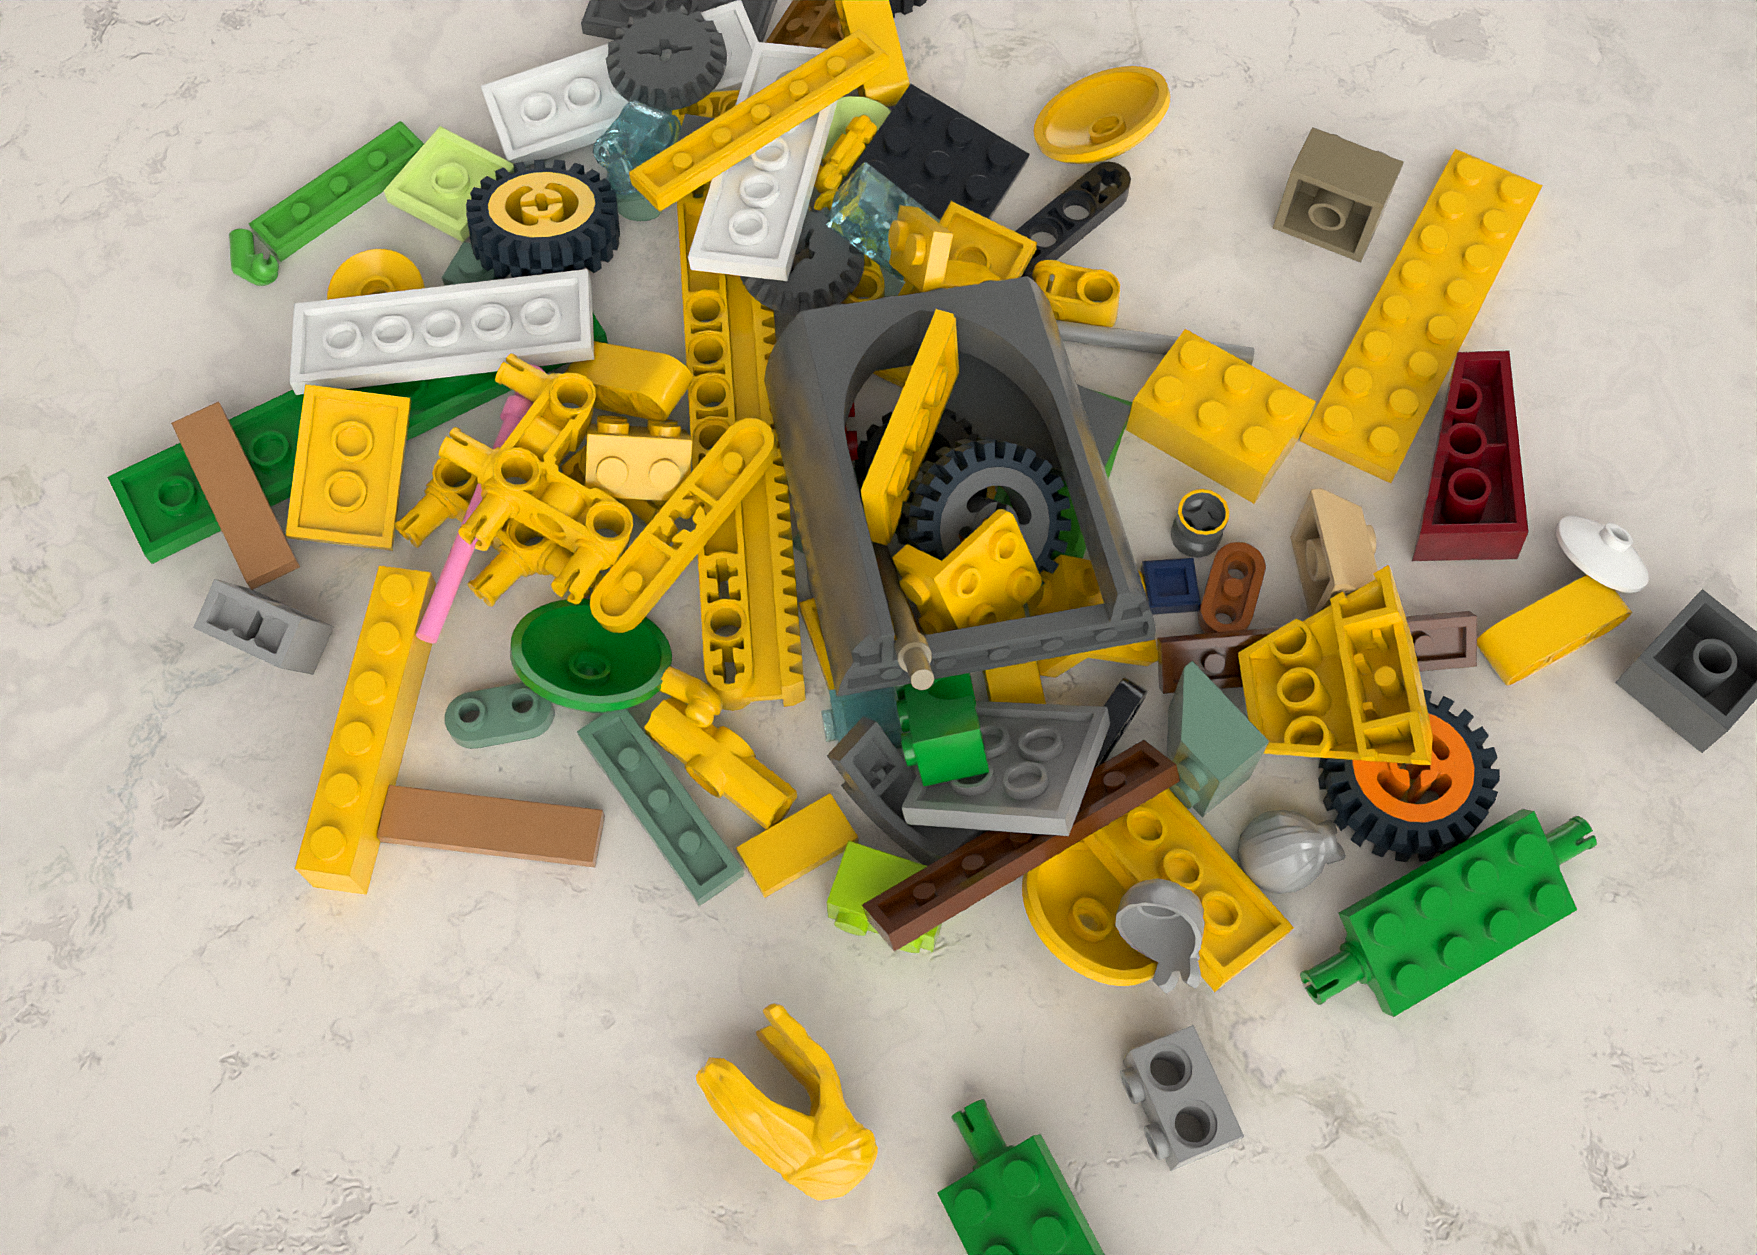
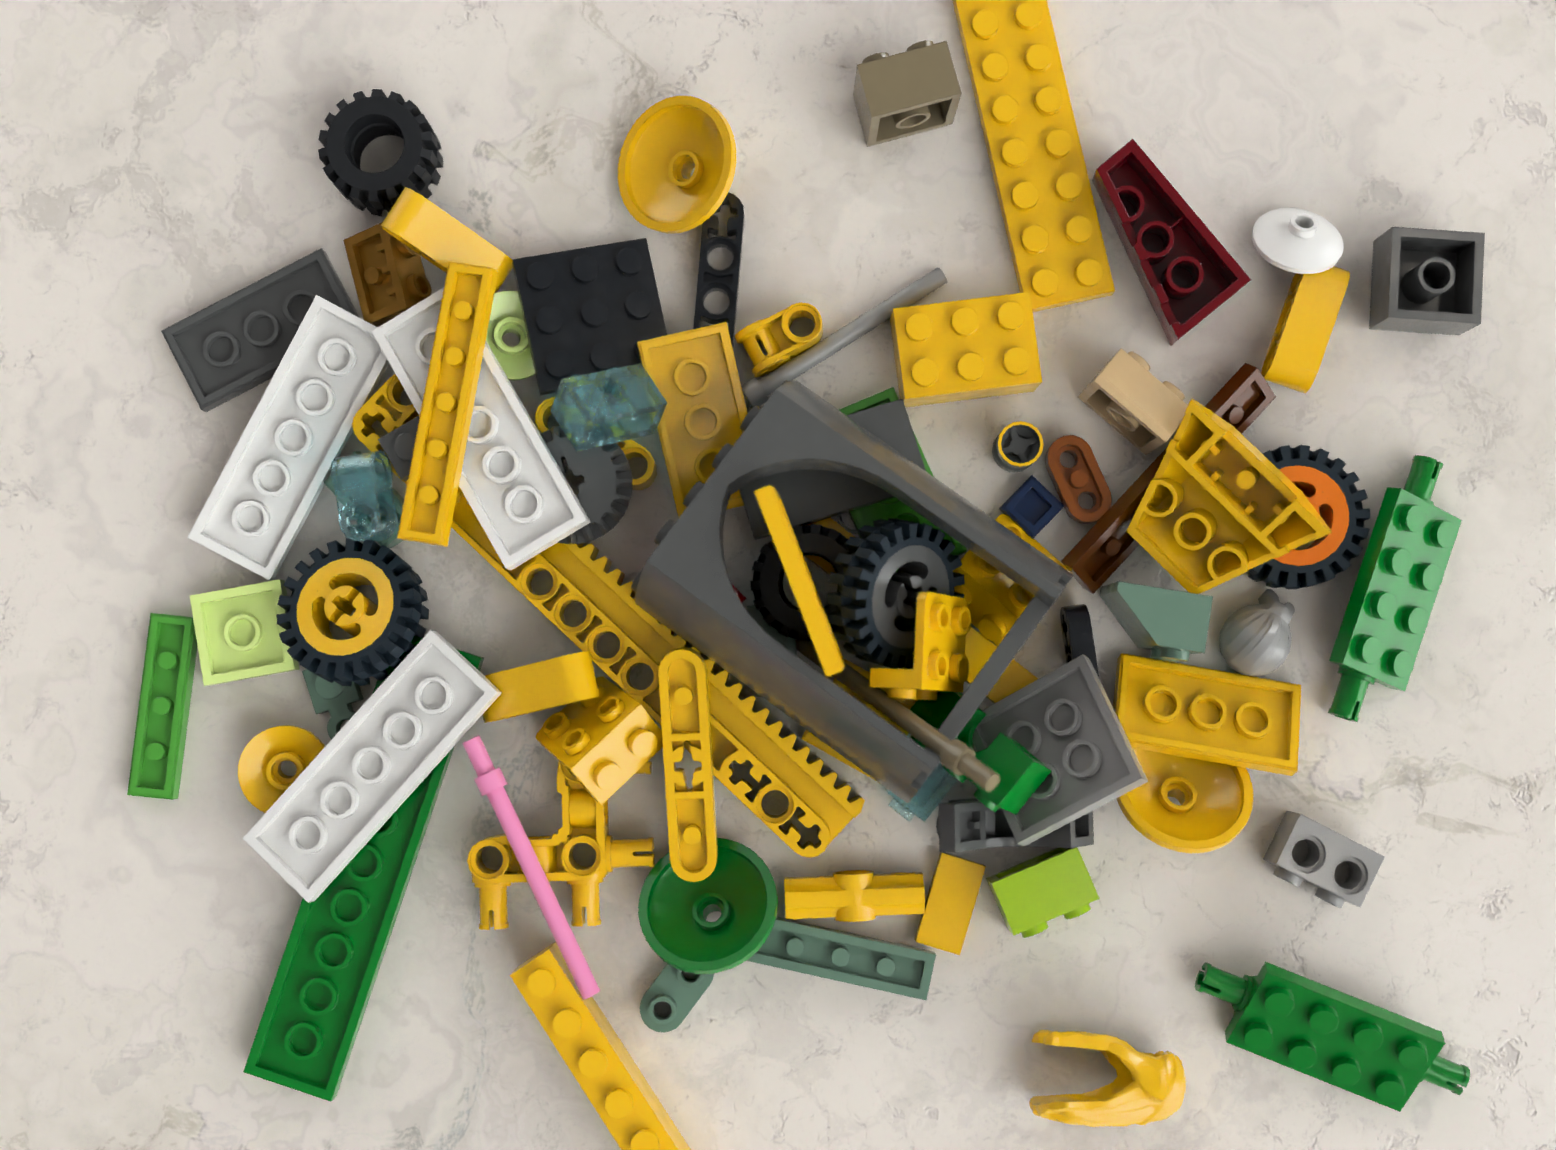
camera: 40 degrees left, 20 degrees up
(235, 496) = (350, 1008): medium nougat tile -> none
(247, 264) = (160, 825): bright green arm -> none
(263, 627) = (470, 1080): light grey brick -> none
(348, 467) = (409, 920): yellow plate -> none
(491, 826) = (745, 1065): medium nougat tile -> none
(548, 499) = (541, 809): yellow pin -> none
(693, 68) = (344, 398): dark grey gear -> none
(698, 694) = (804, 869): yellow arm -> none
(845, 153) = (520, 362): yellow axle -> none
(922, 252) = (695, 421): yellow bracket -> none
(1002, 856) = (1102, 833): reddish brown plate -> none
(1166, 927) = (1240, 770): light grey piece -> none

